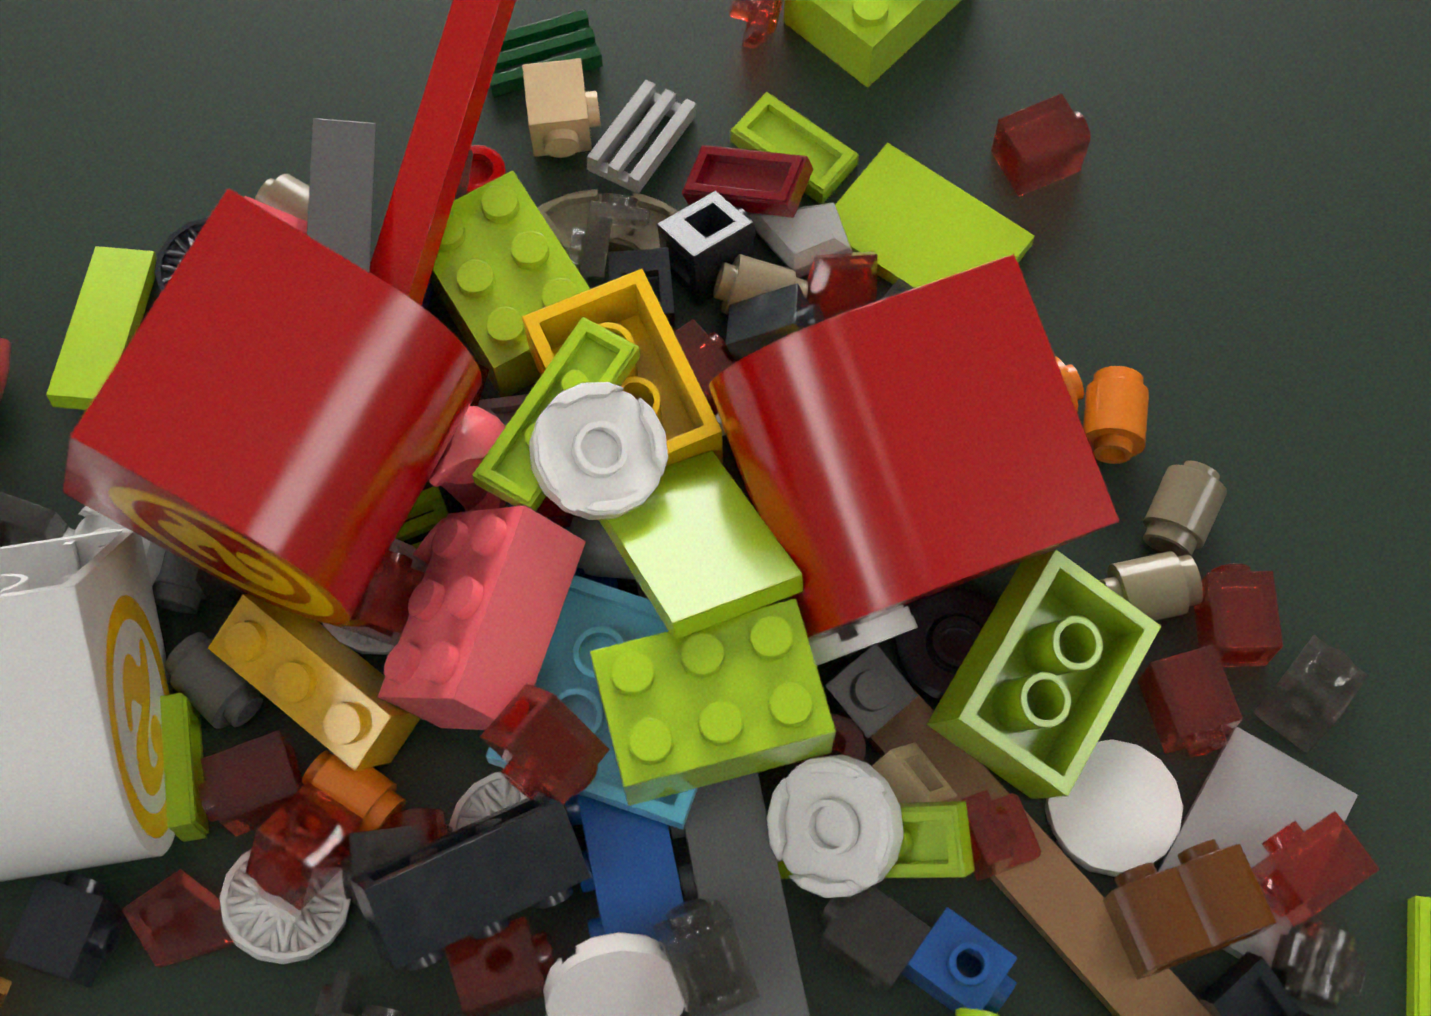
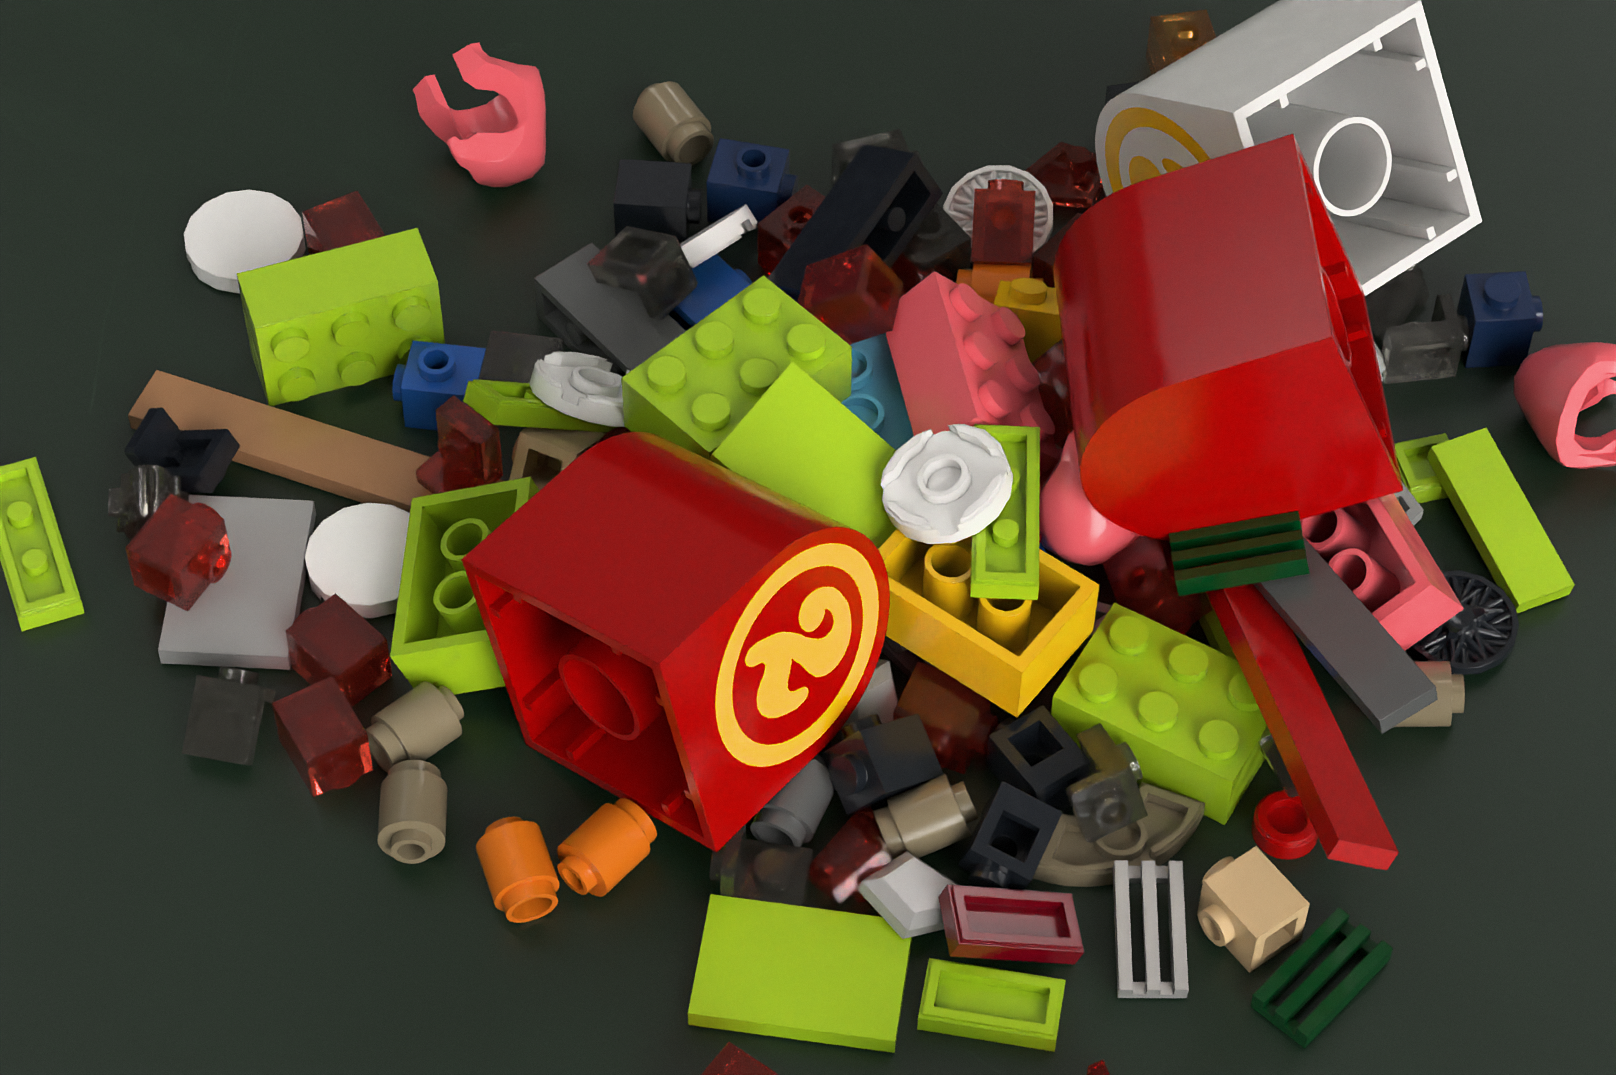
camera: 150 degrees right, 15 degrees down
(1187, 908) = (275, 480): reddish brown brick -> none

